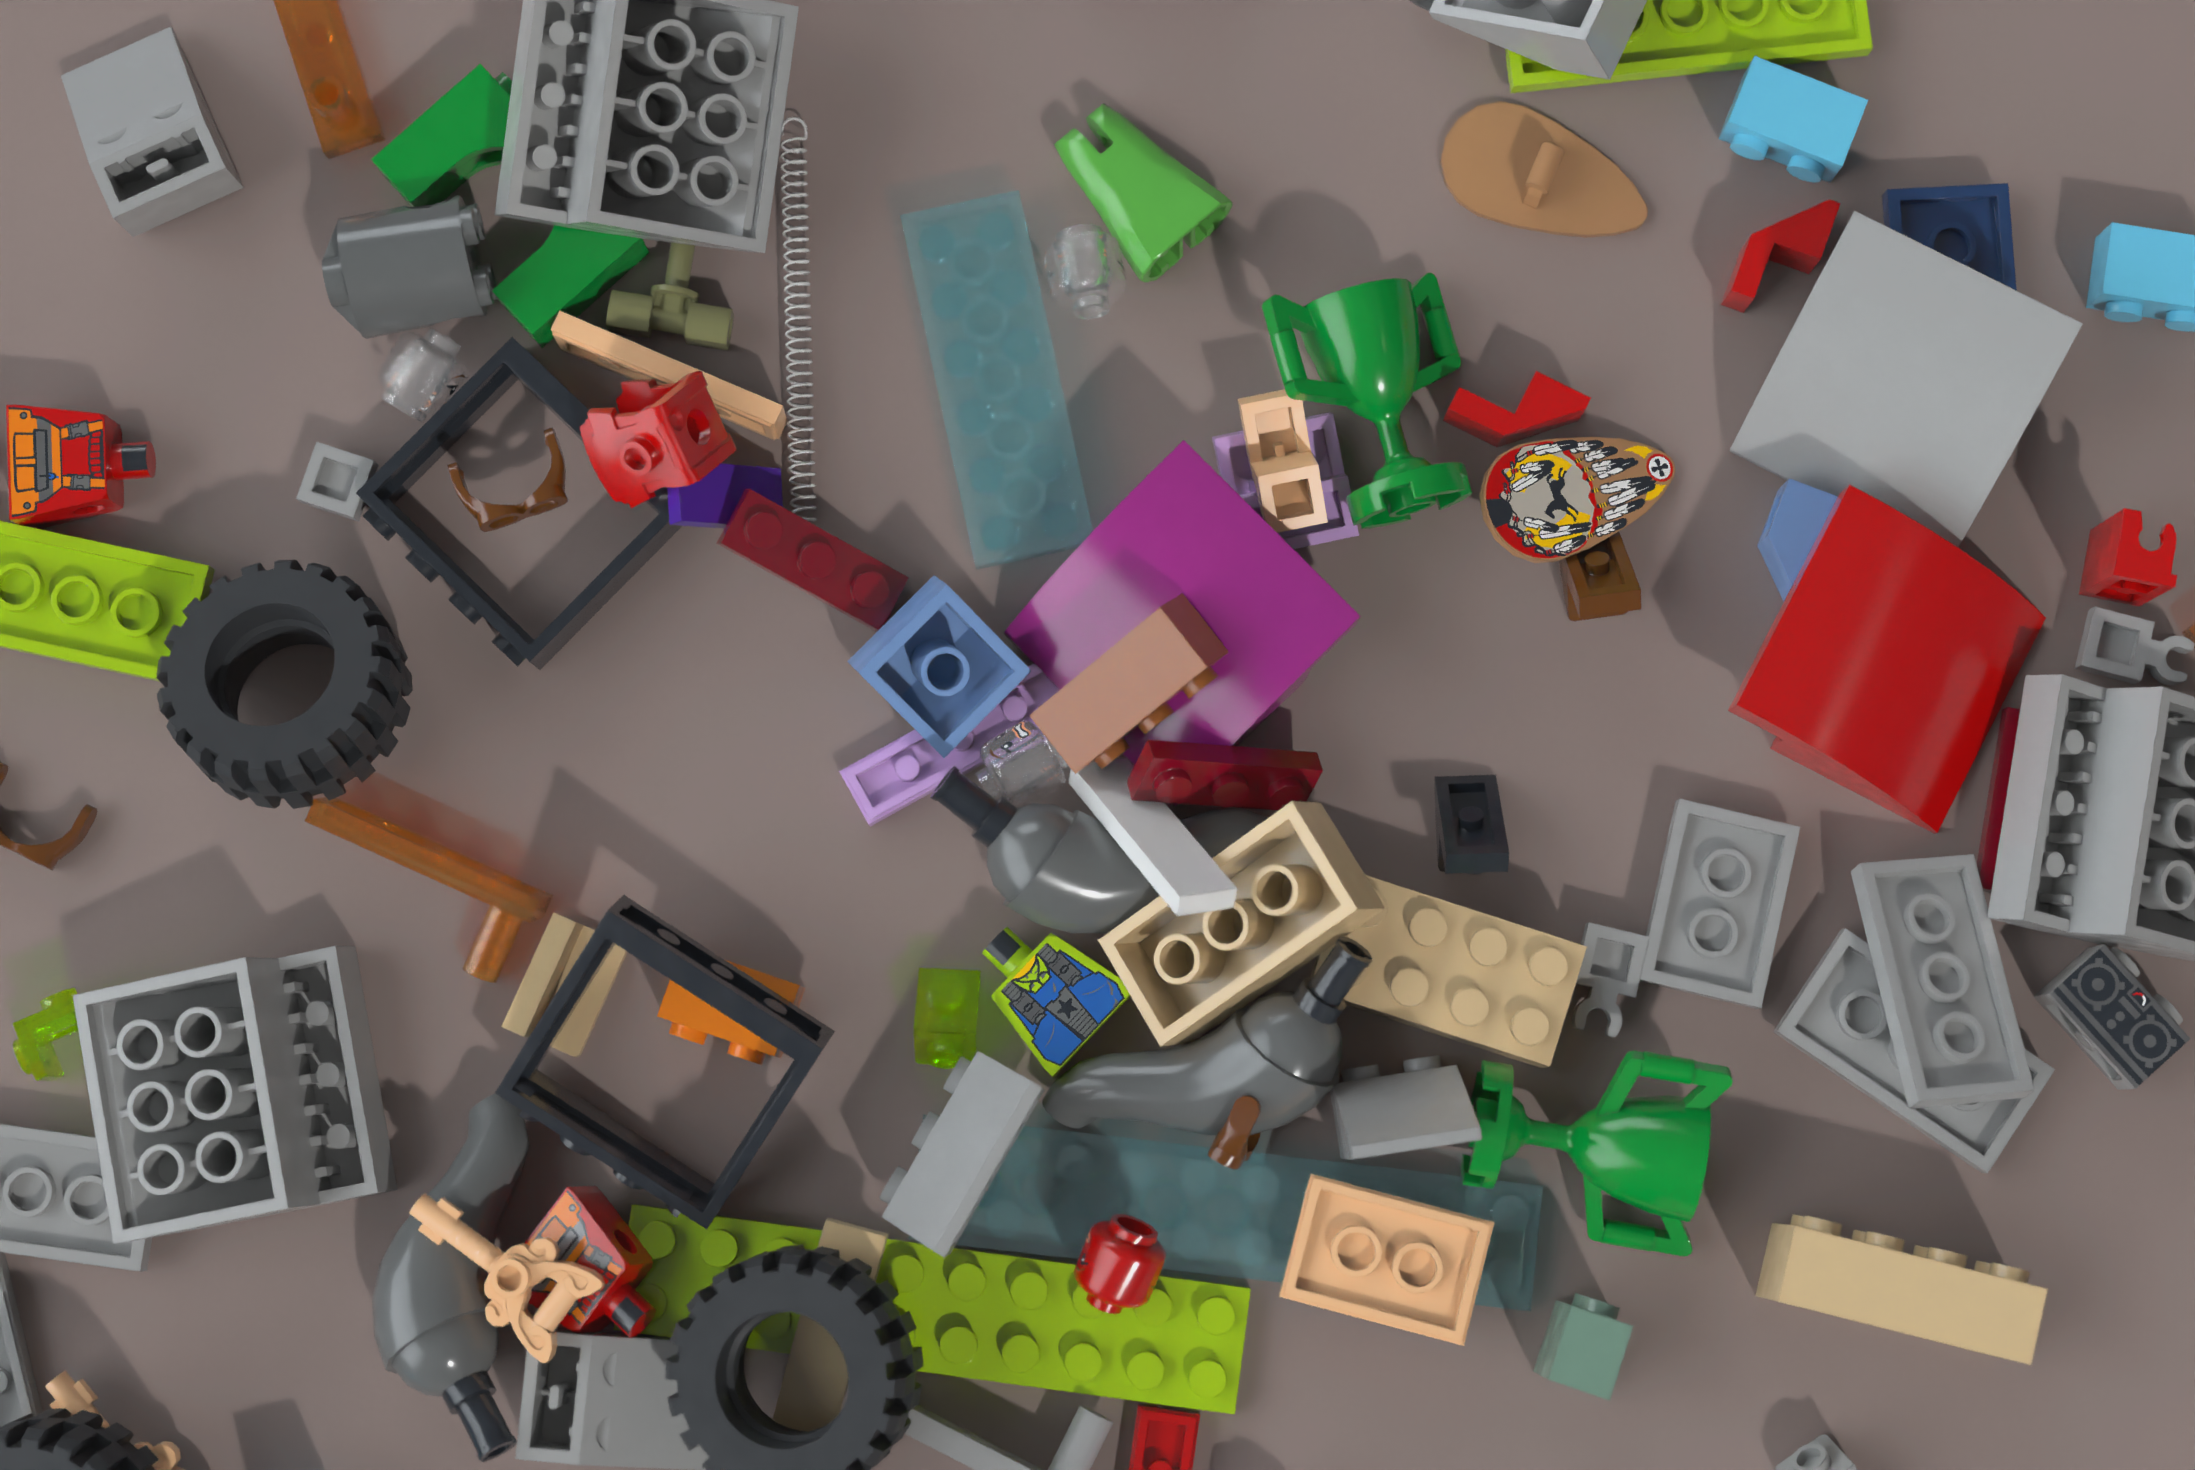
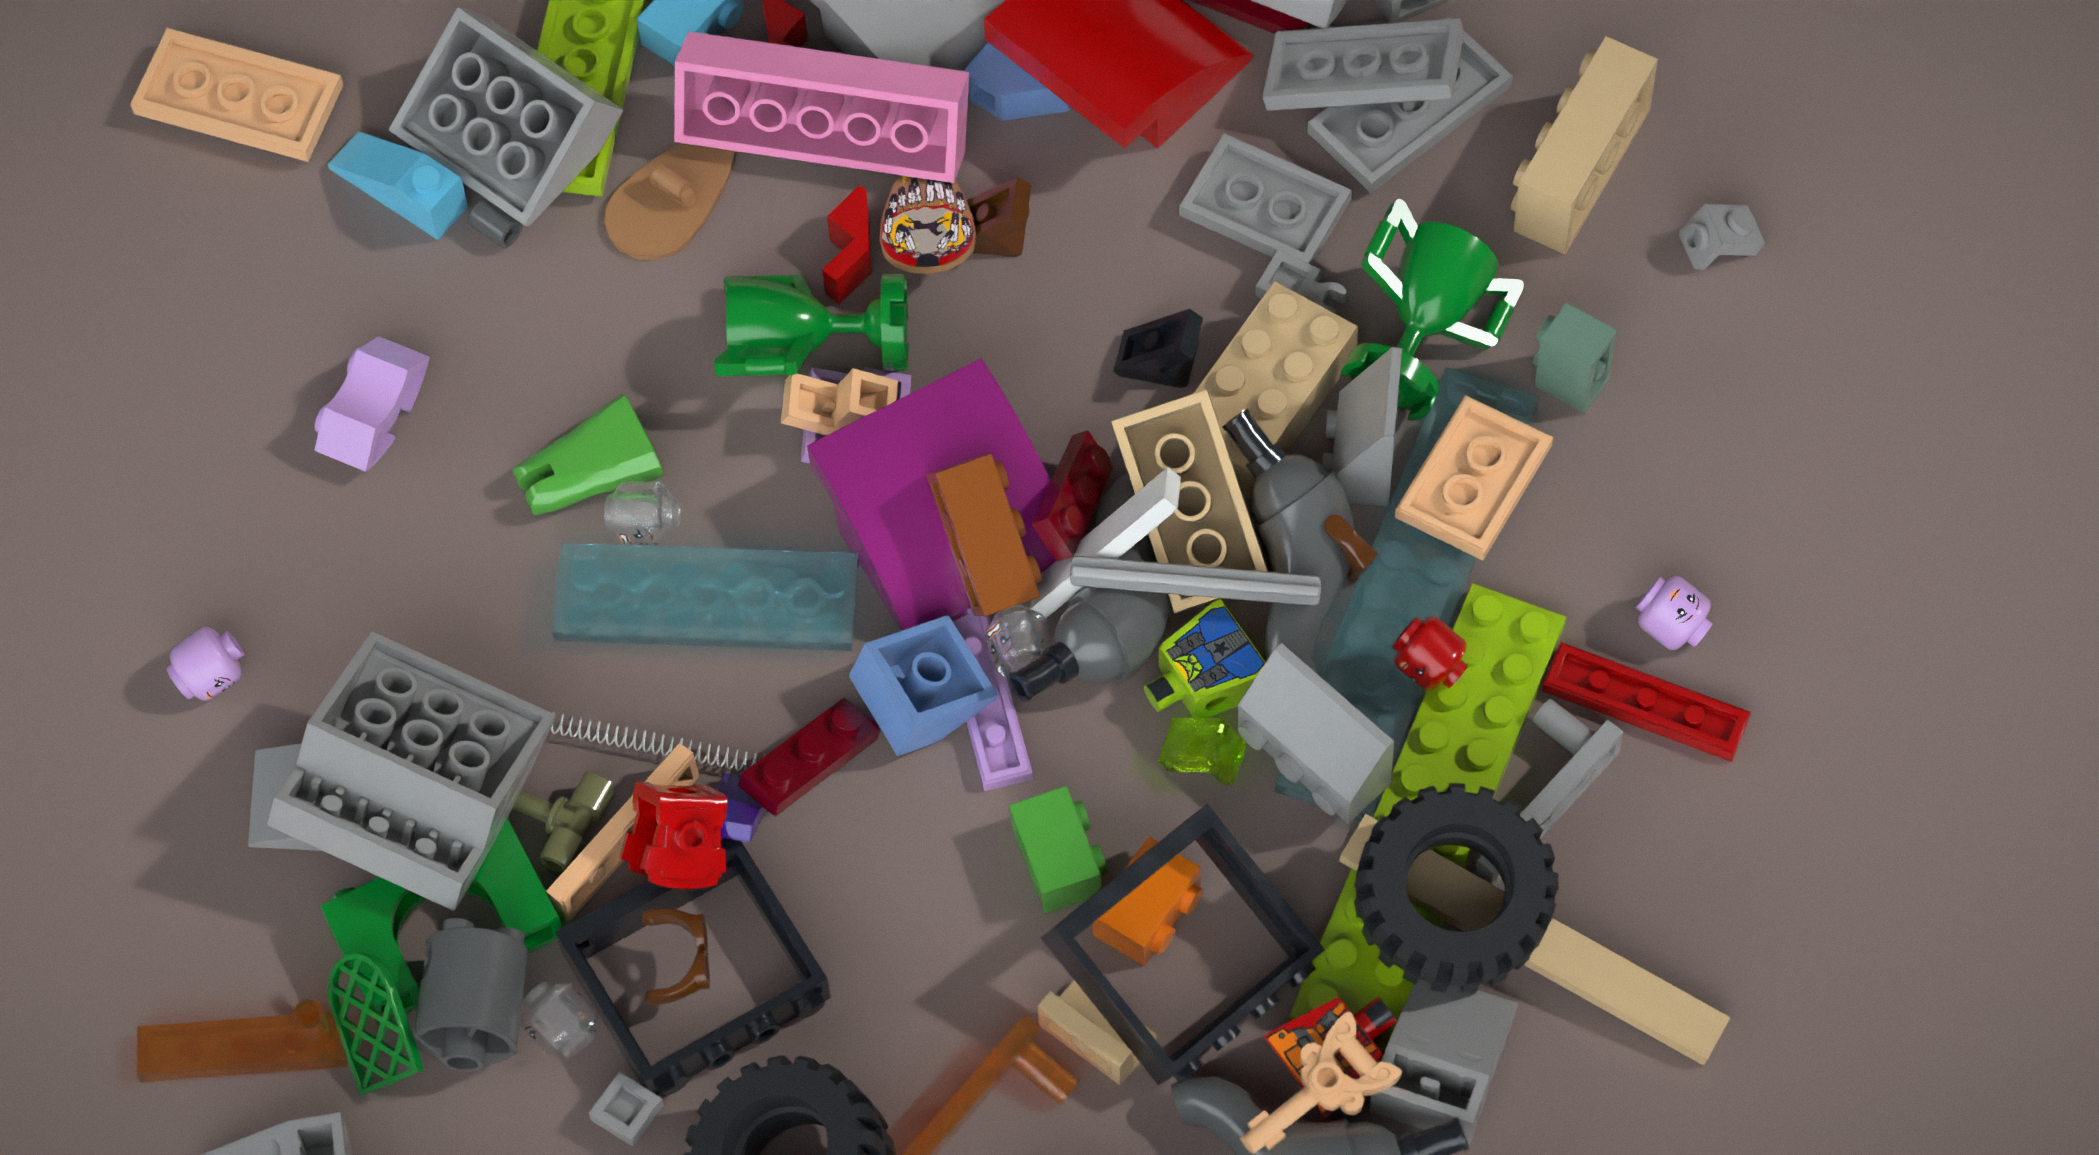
camera: 75 degrees left, 20 degrees down
(345, 154) = (343, 1024): none -> green window
(771, 881) = (1057, 849): none -> bright green brick
(1125, 958) = (1195, 580): none -> light grey axle
(1686, 318) = (820, 106): none -> bright pink brick

